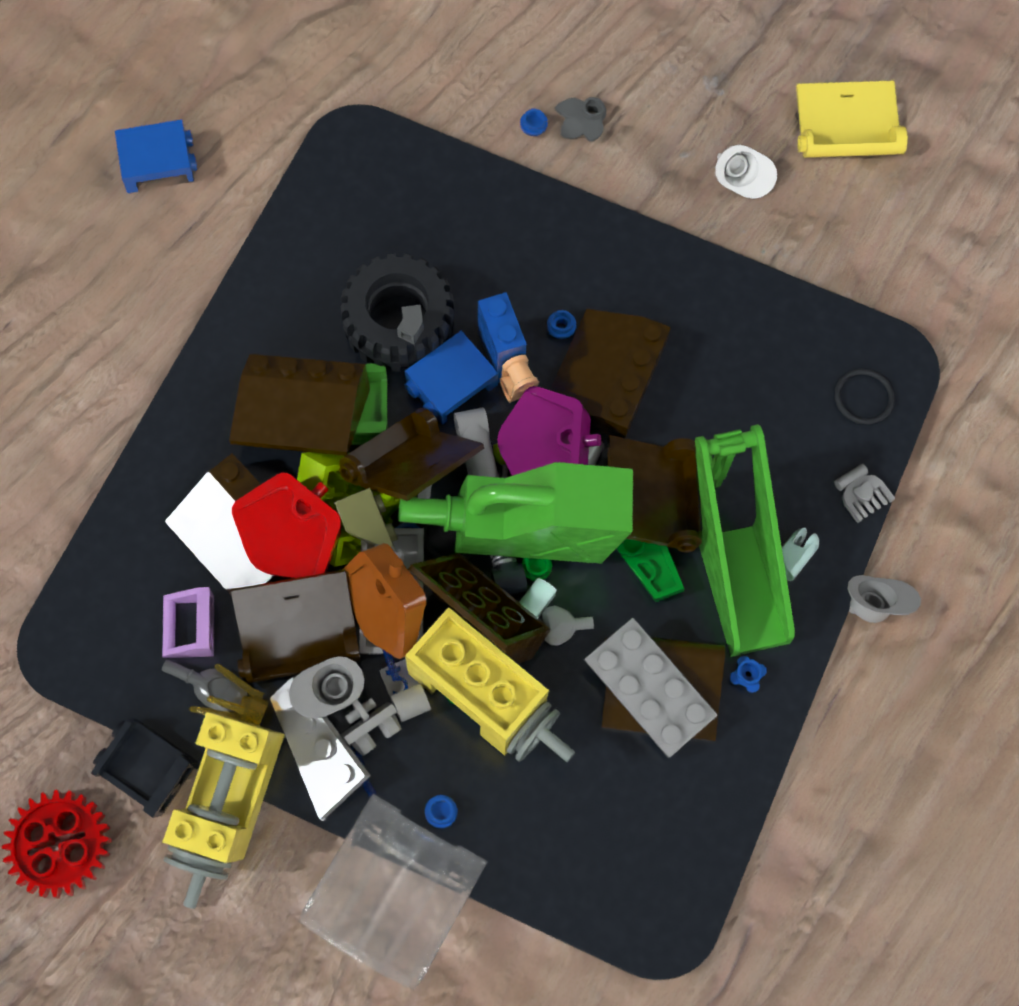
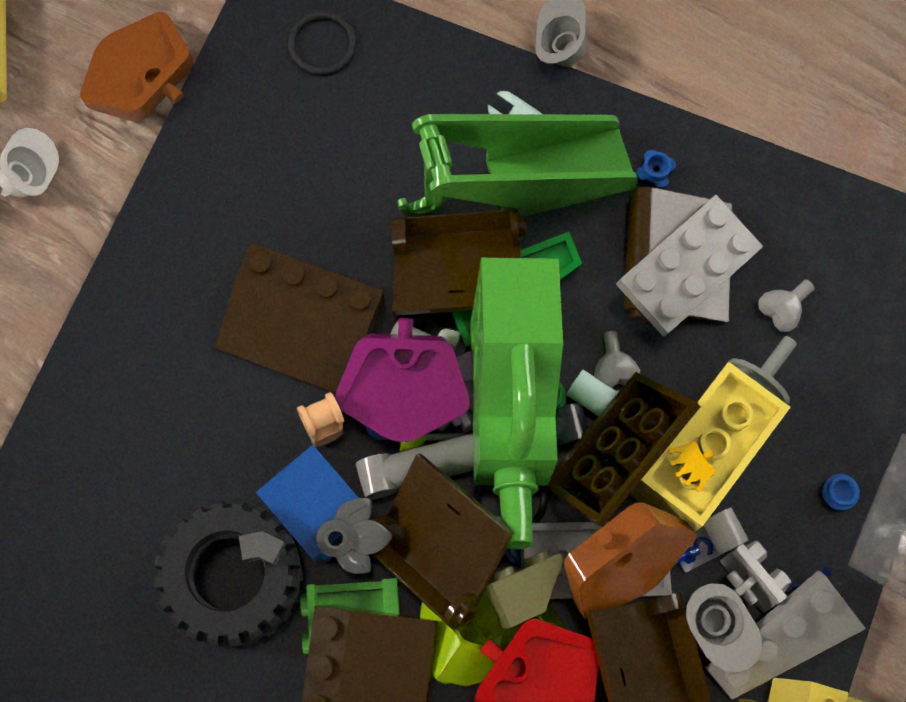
camera: 90 degrees left, 5 degrees up
(420, 401) = (358, 533): none -> dark grey plate
(458, 651) = (694, 463): none -> yellow piece
(499, 331) = (266, 440): blue brick -> none
(564, 317) = (233, 366): blue plate -> none
(615, 779) = (785, 305): none -> light grey rock
(836, 254) = (137, 69): none -> dark orange animal
(860, 489) = (436, 49): light grey piece -> none

